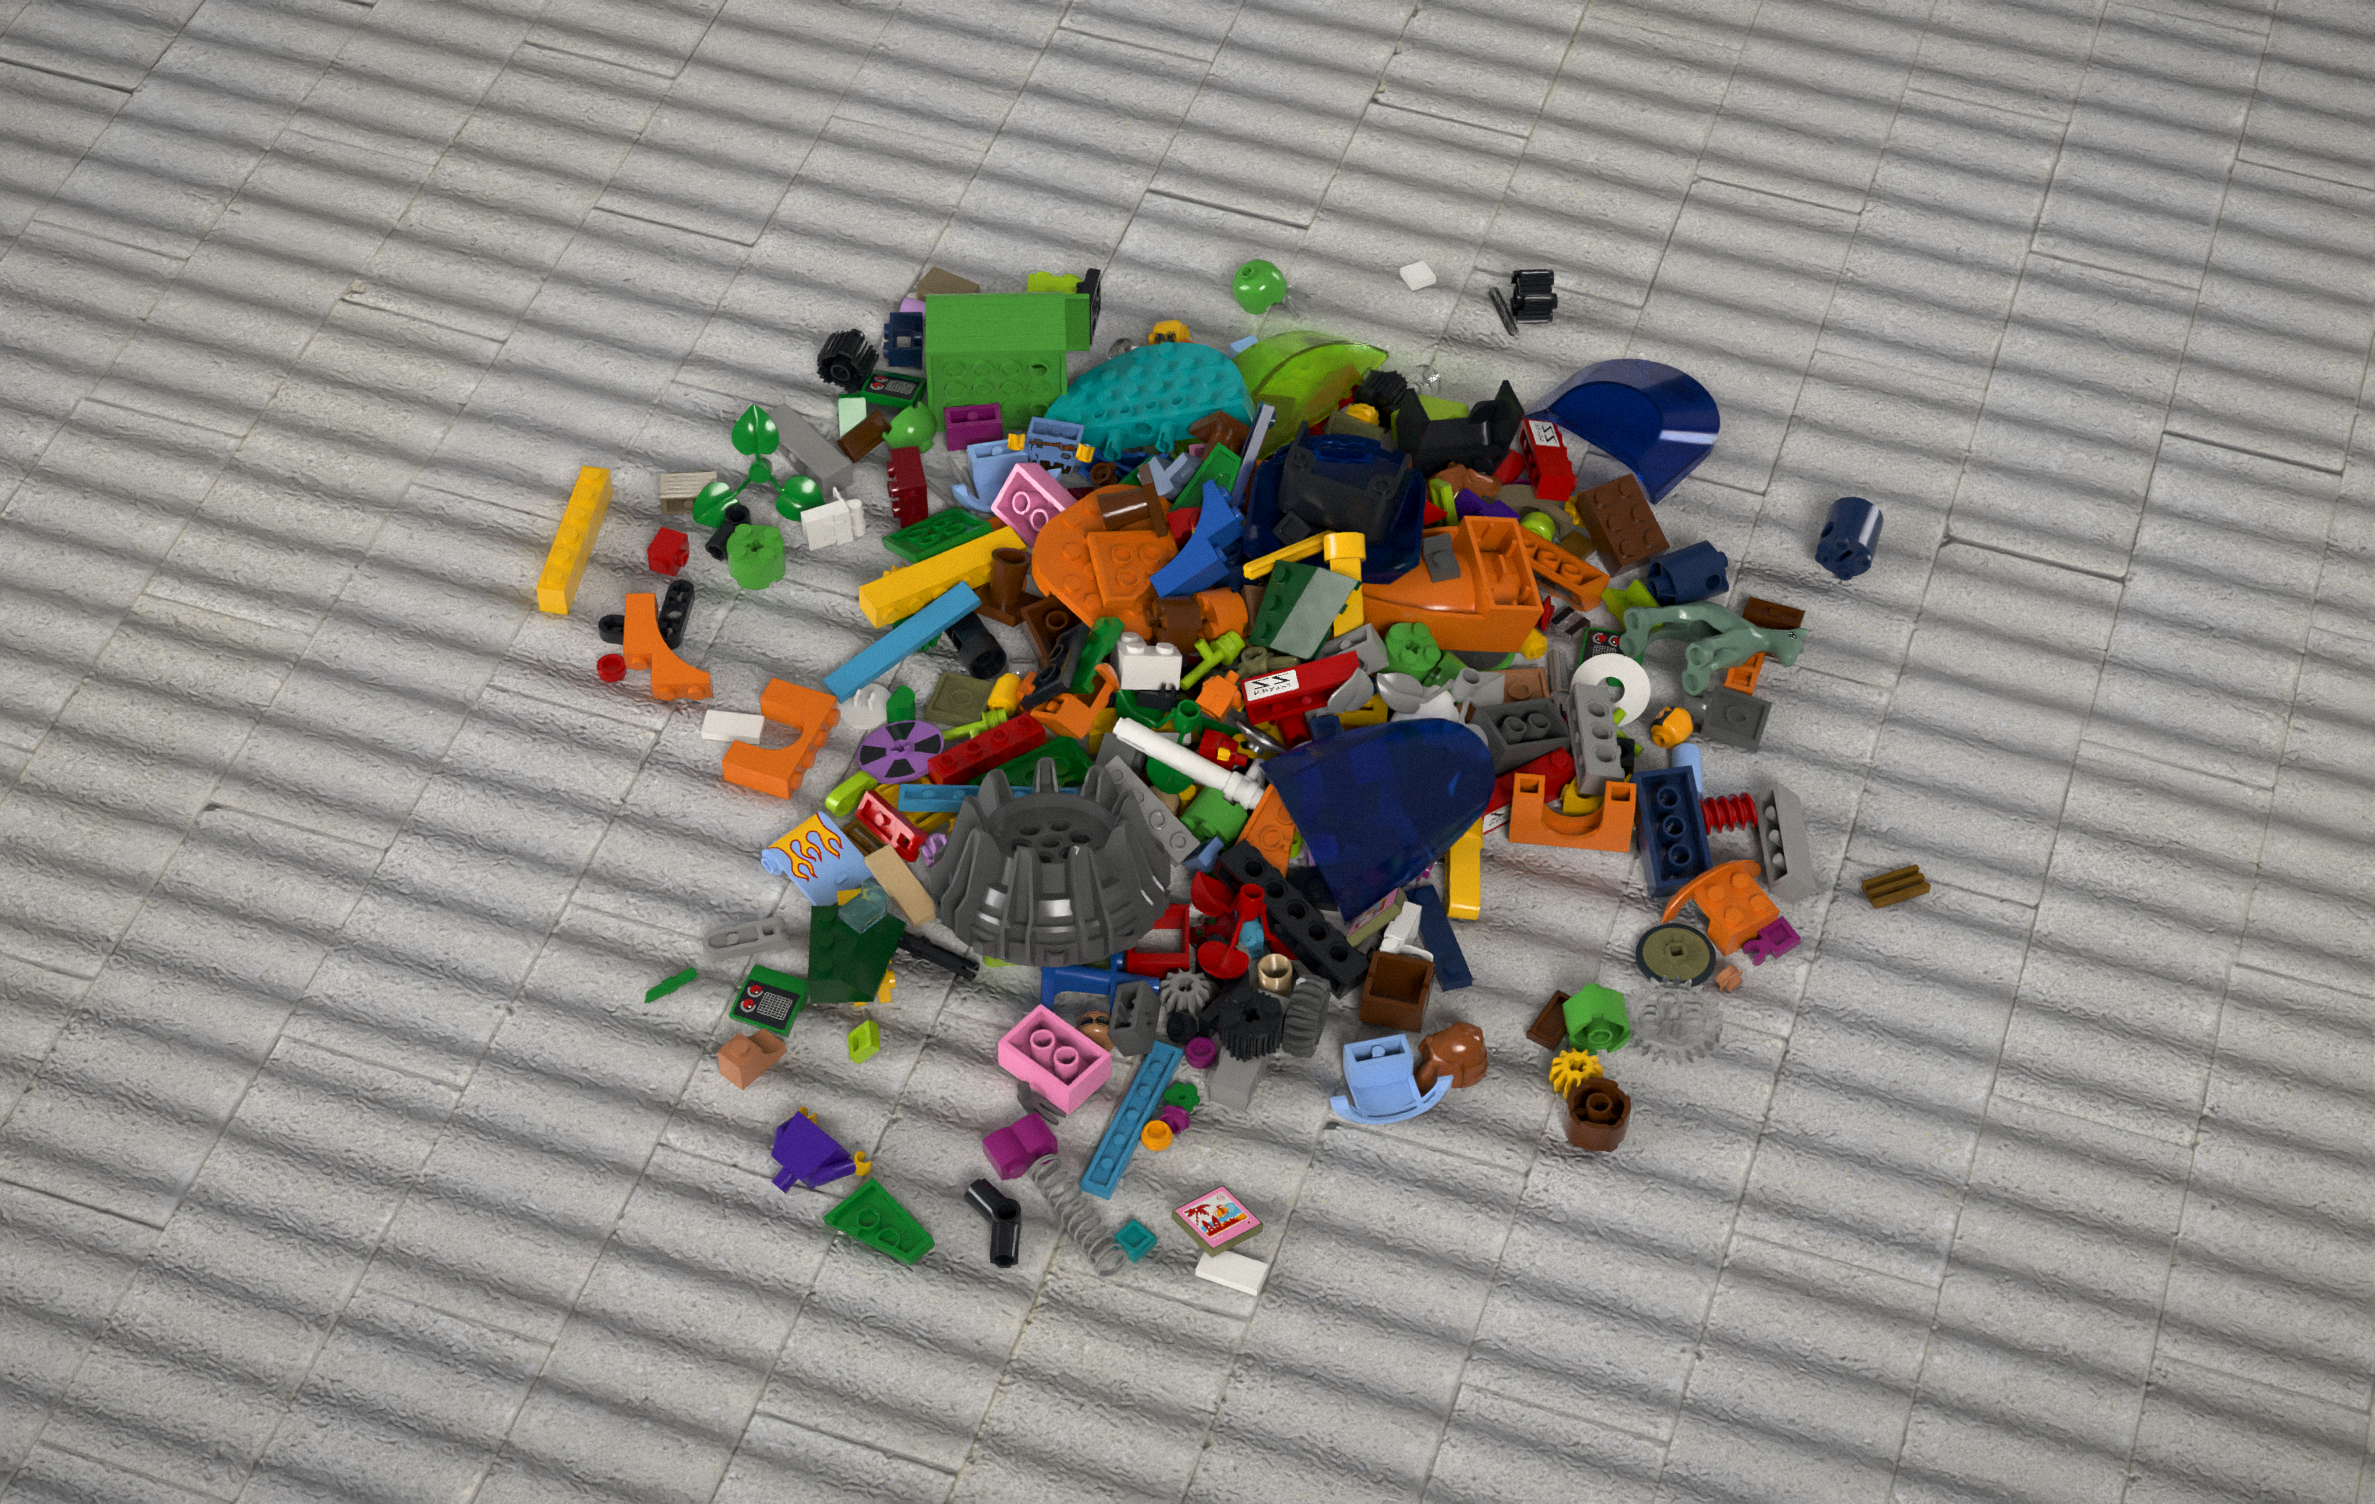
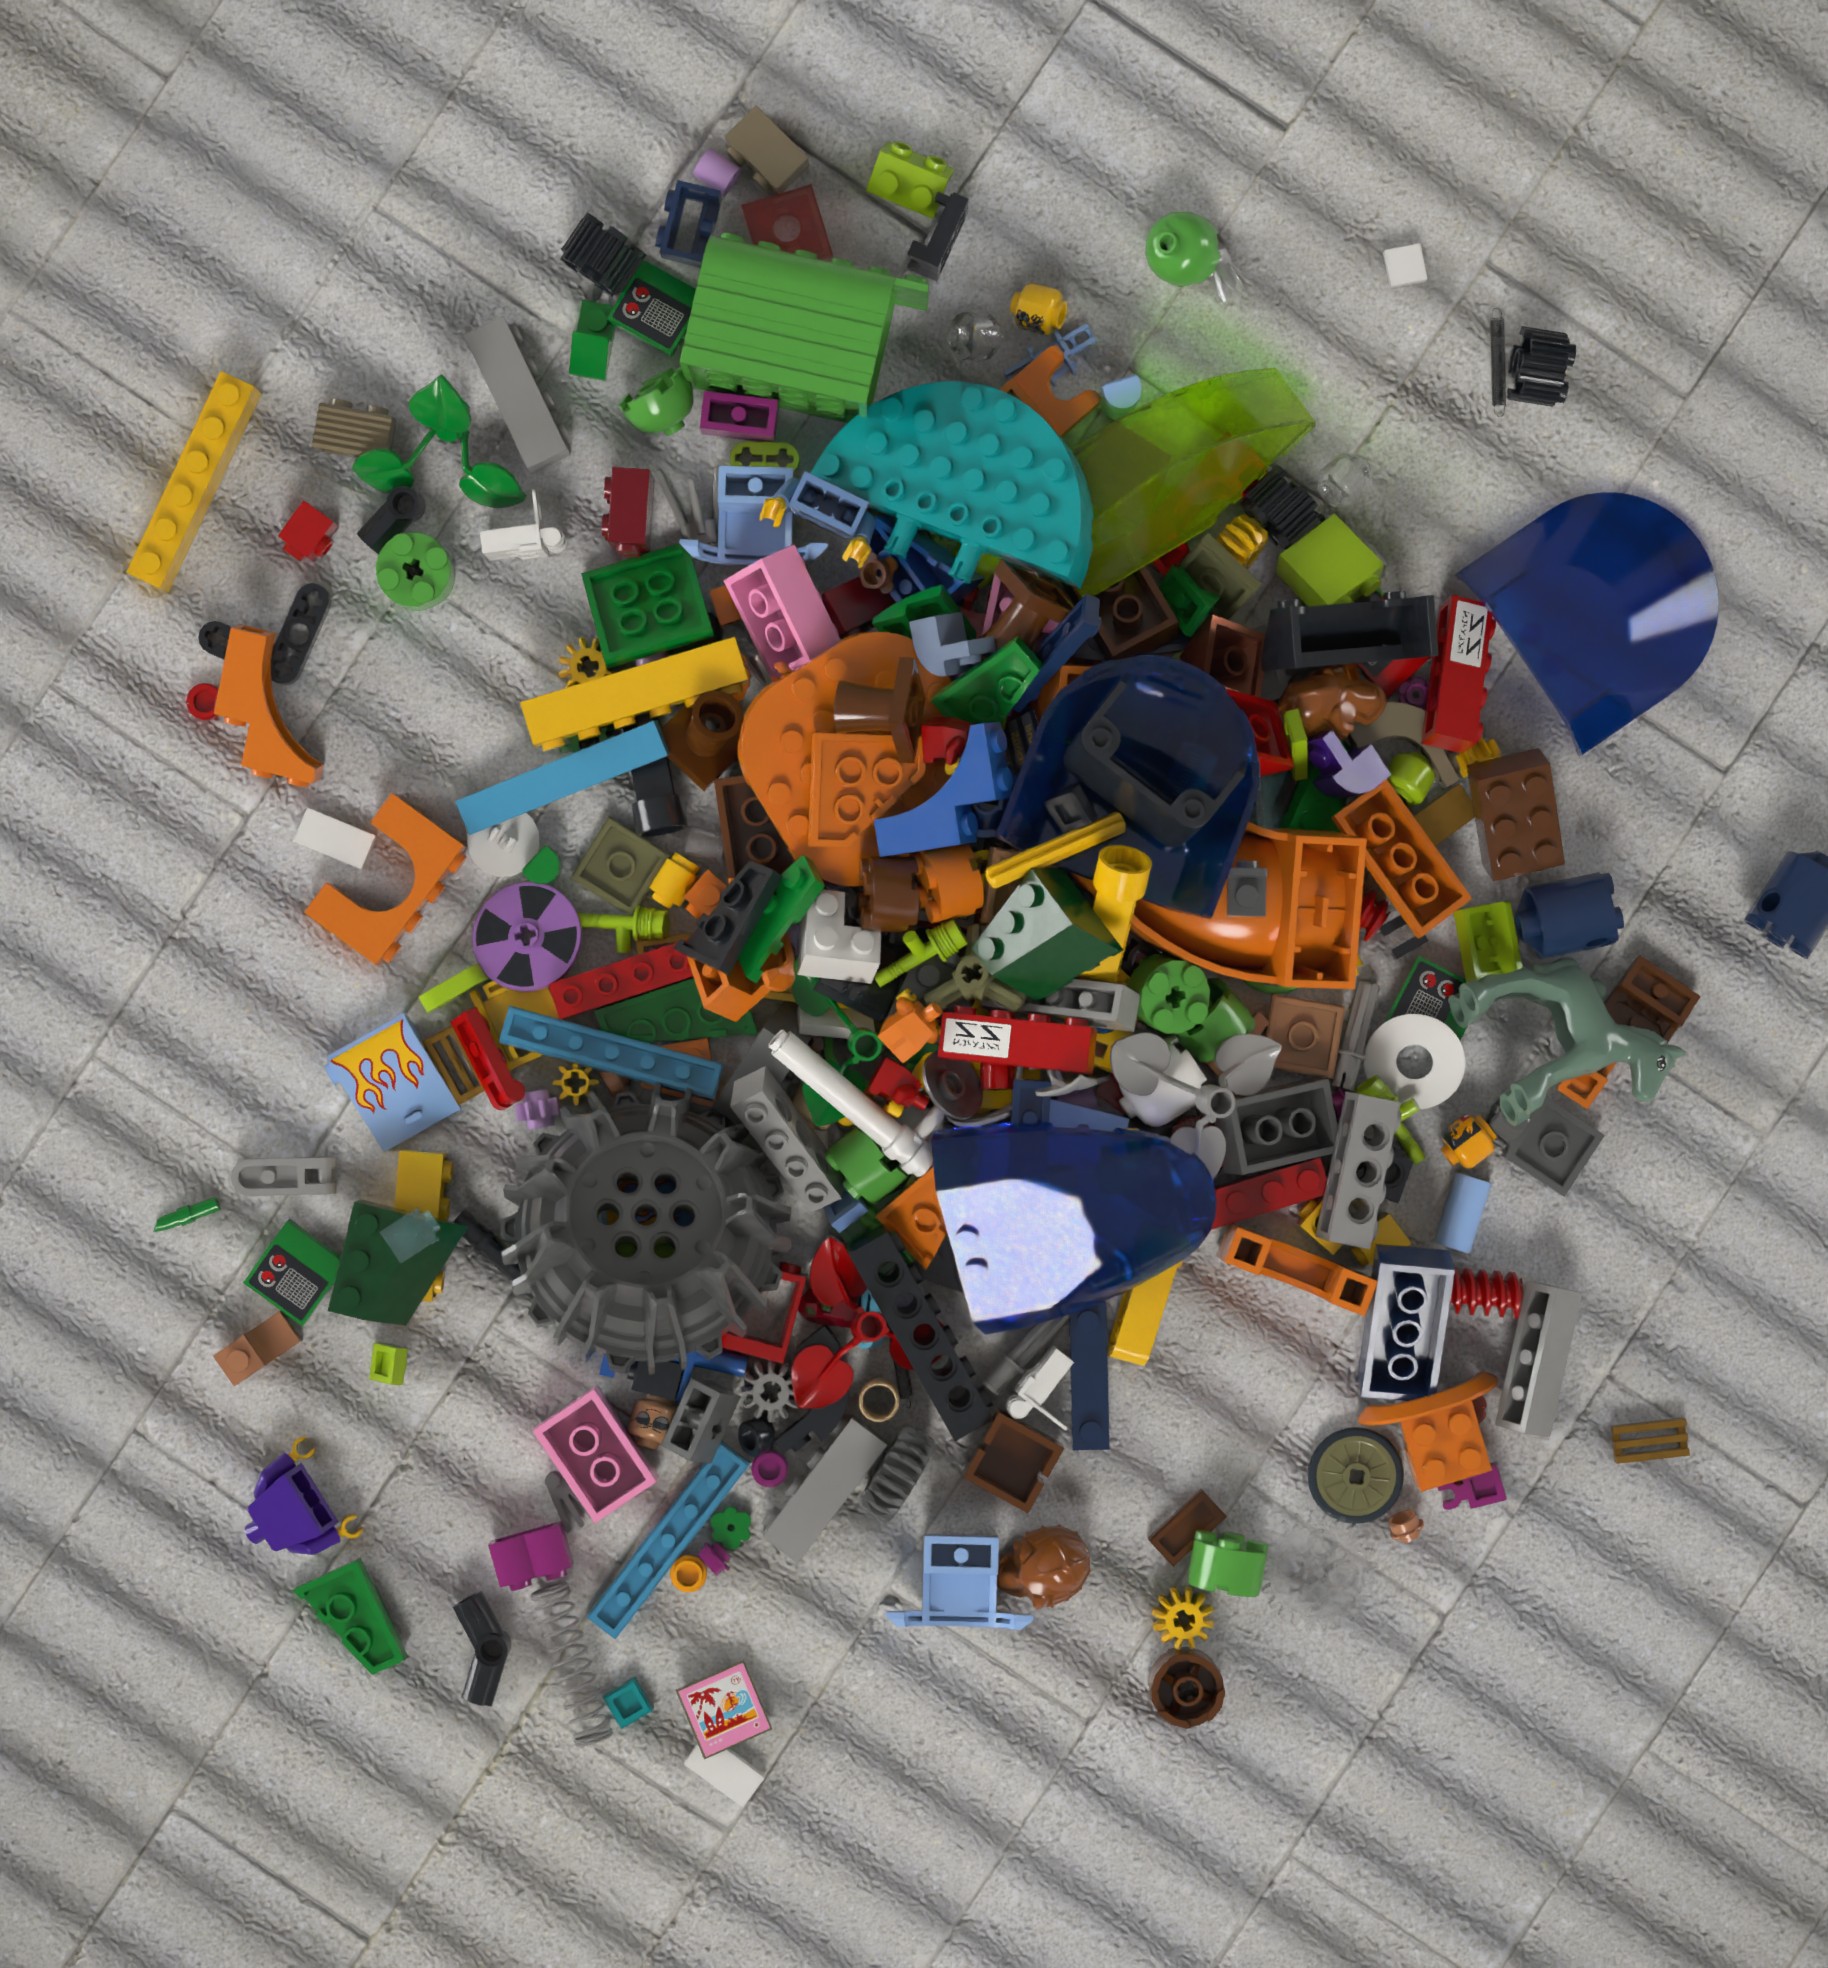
camera: 15 degrees right, 40 degrees up
(864, 436) = (599, 388): reddish brown tile -> none
(901, 885) = (481, 1143): tan tile -> none
(1086, 997) = (661, 1384): none -> black brick
(1250, 1024) = (826, 1511): black brick -> none
(1376, 917) = (1016, 1362): olive tile -> none

